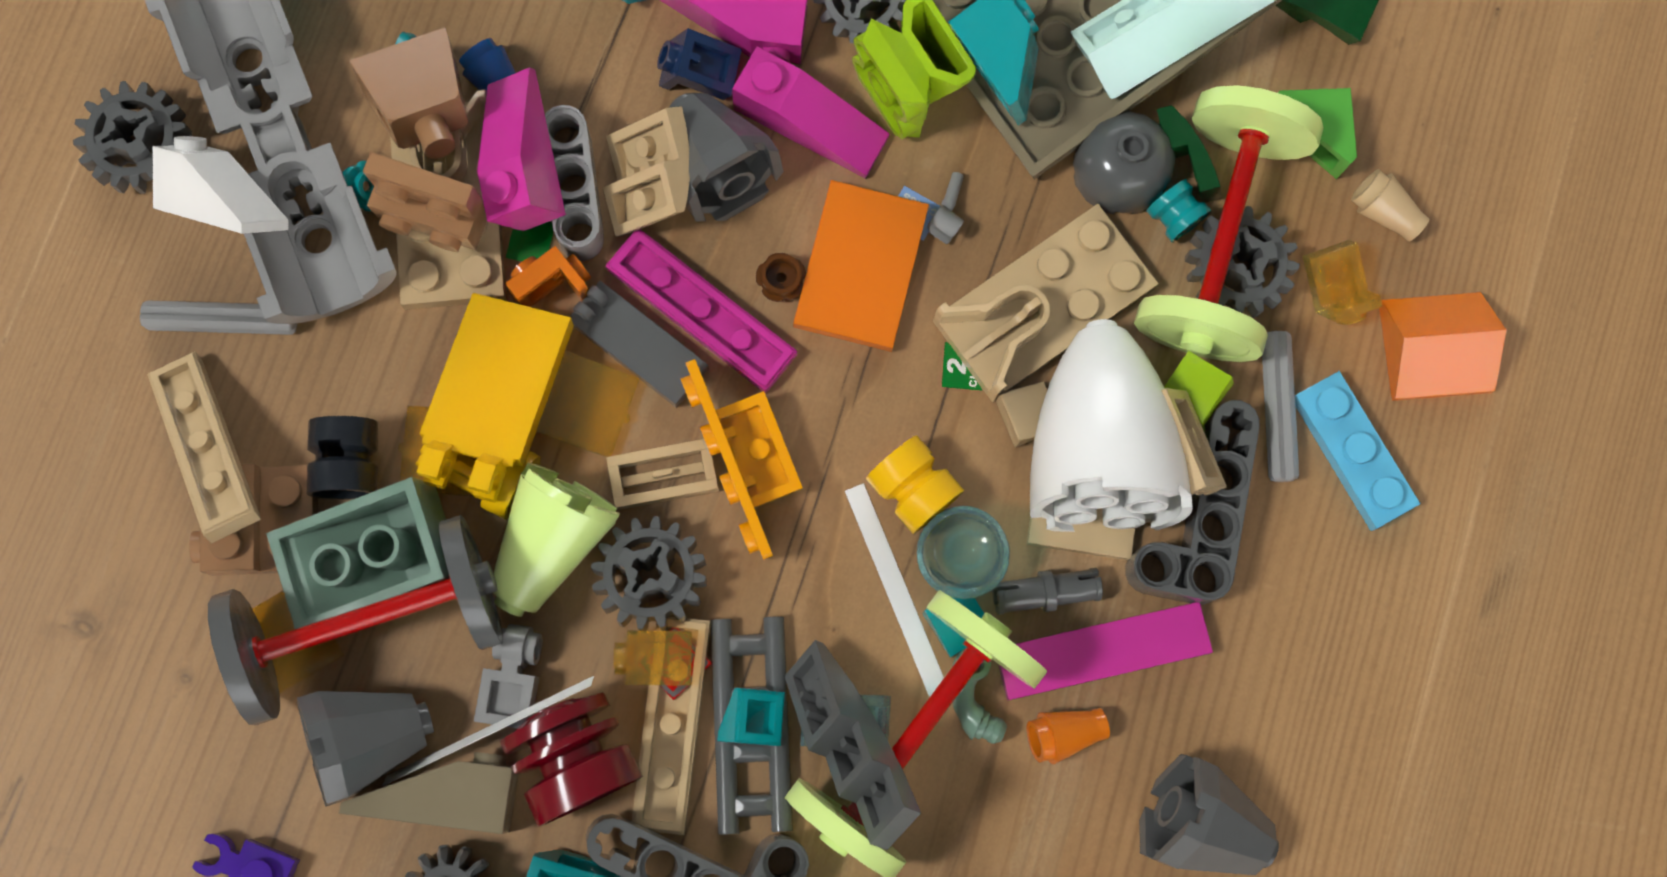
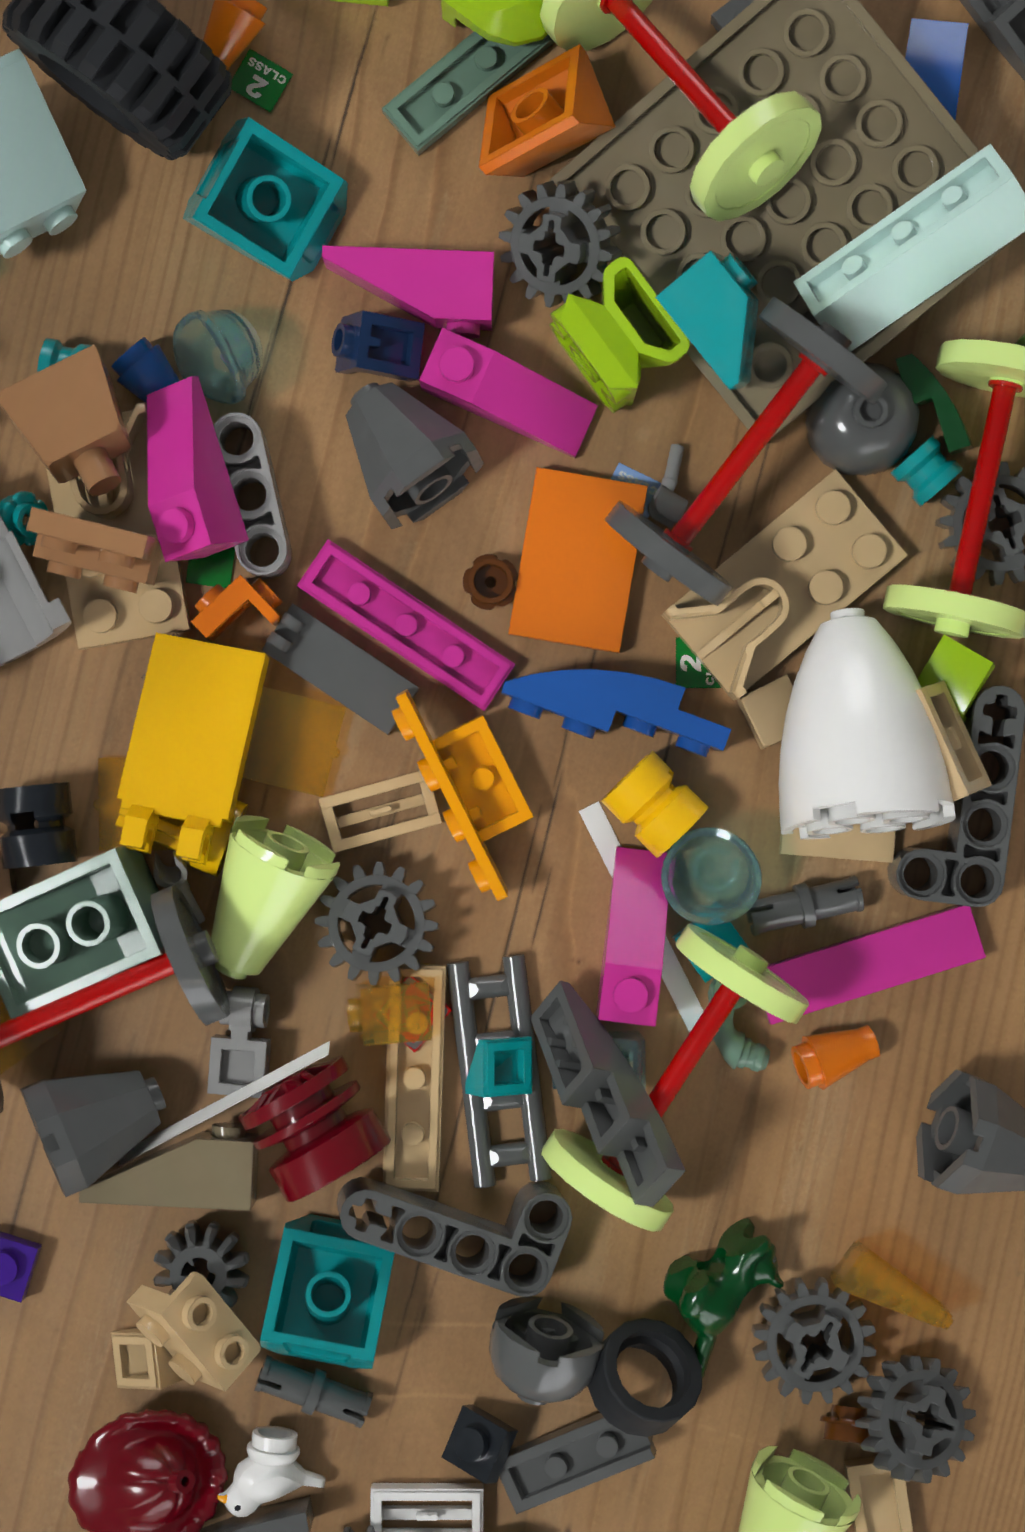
camera: 10 degrees right, 10 degrees up
(470, 517) = (177, 875): none -> light grey hand
(560, 55) = (220, 350): none -> clear light blue helmet
(649, 170) = (337, 481): tan slope -> none
(867, 382) = (593, 697): none -> blue slope
(887, 609) = (633, 940): none -> dark pink slope
(1092, 86) = (821, 352): none -> dark grey piece

